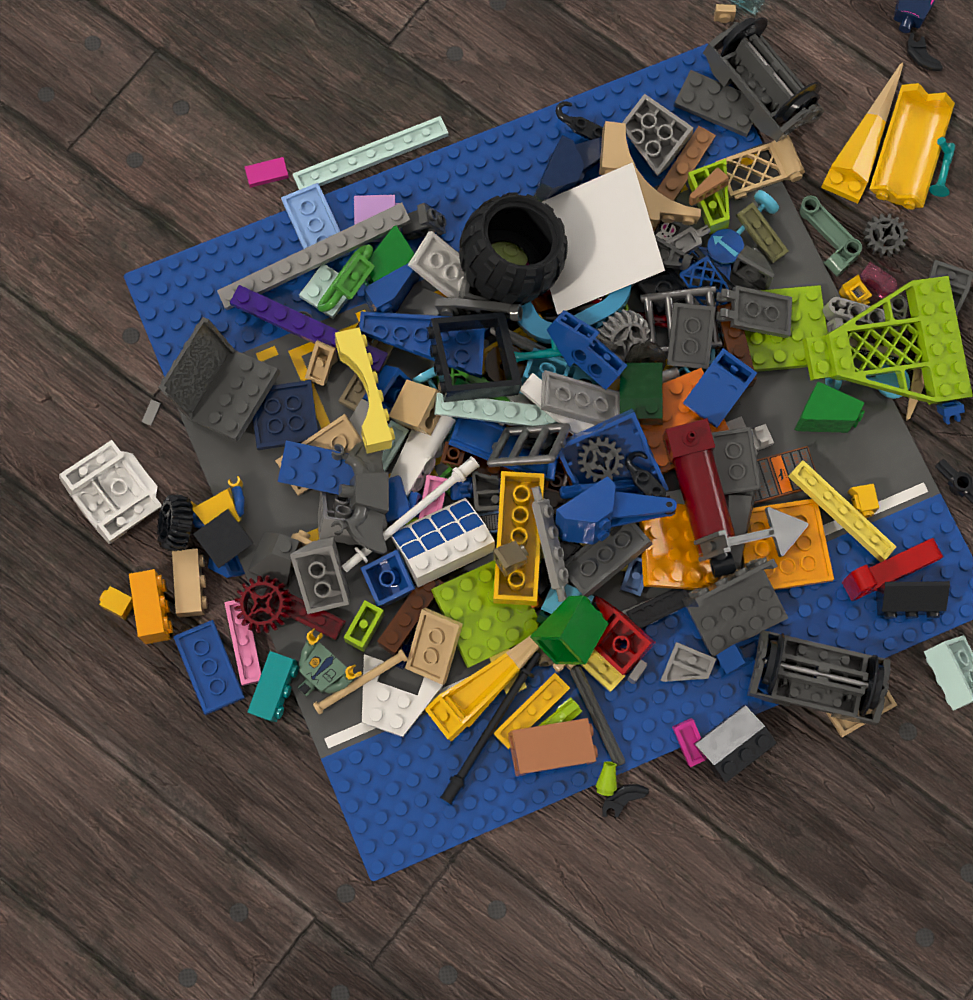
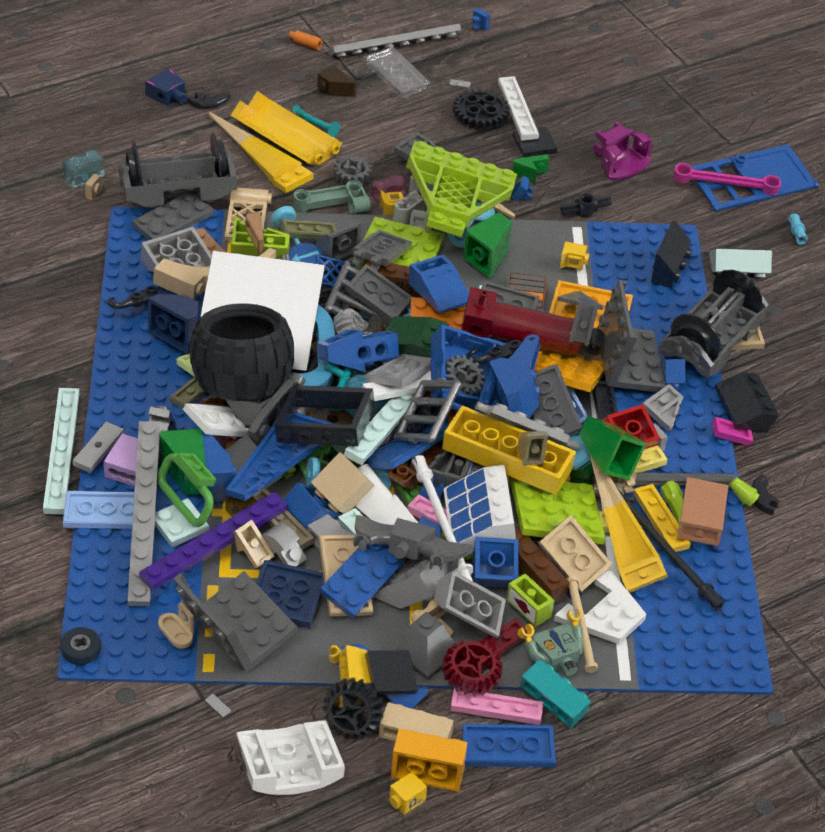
camera: 70 degrees left, 30 degrees down
(153, 266) = (80, 654): none -> black bush
(266, 172) = (24, 531): dark pink tile -> none
(332, 387) = (283, 541): none -> light grey brick
(352, 352) = (349, 507): light yellow arch -> none
(368, 183) = (98, 447): none -> light grey tile
(842, 511) = (578, 268): light yellow plate -> none
(867, 580) = (643, 263): red beam -> none

